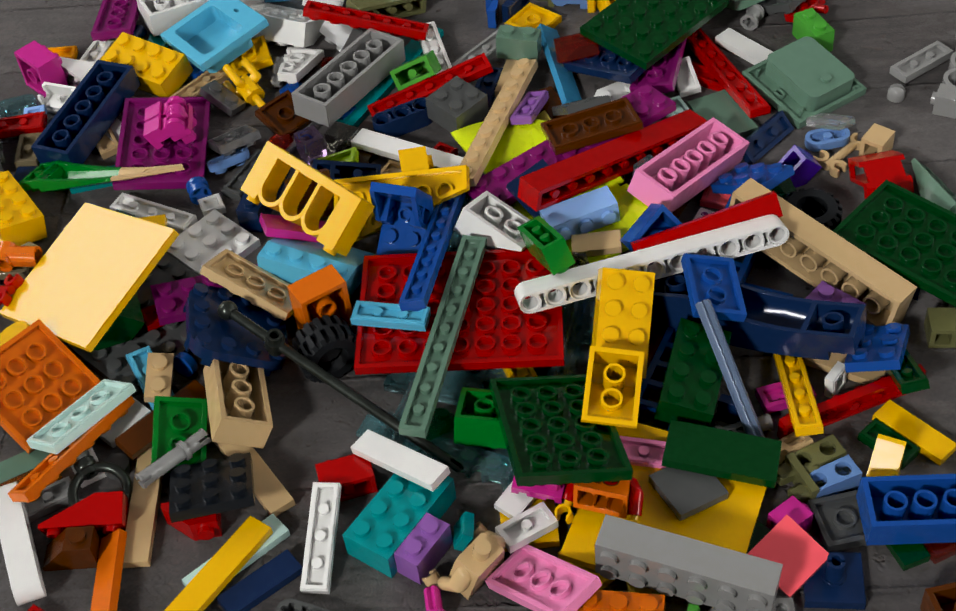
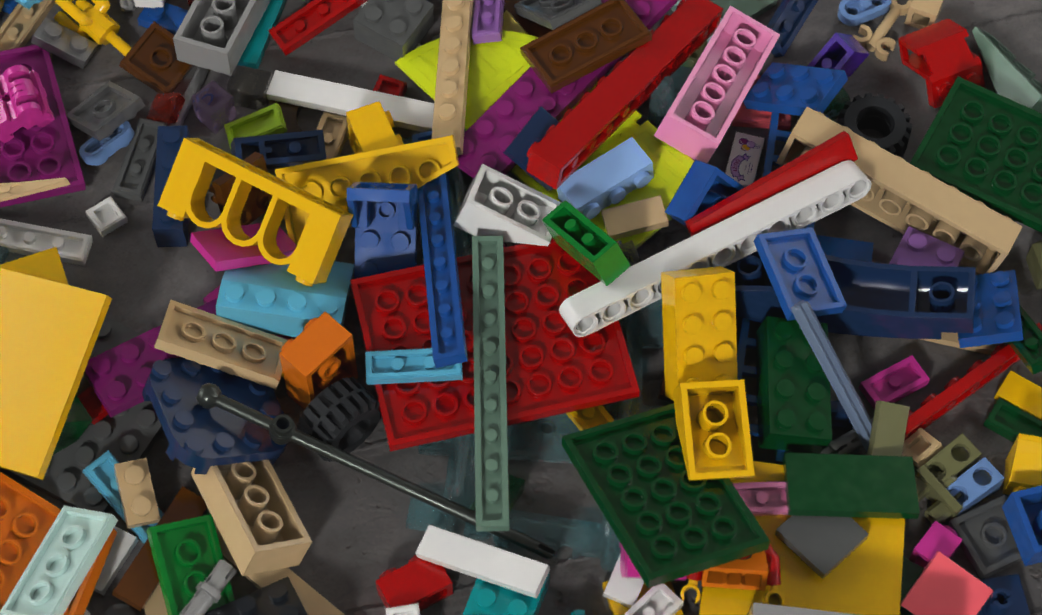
camera: 20 degrees left, 15 degrees up
(185, 364) = (159, 463): blue tile -> none
(198, 188) = (82, 196): blue wheel -> none
(209, 238) = (134, 274): white plate -> none
(402, 118) = (335, 36): dark blue beam -> none
(477, 420) = (554, 484): green brick -> none
(768, 417) = (888, 429): none -> olive tile
(799, 395) = (915, 389): yellow tile -> none
(835, 380) = (946, 355): white tile -> none

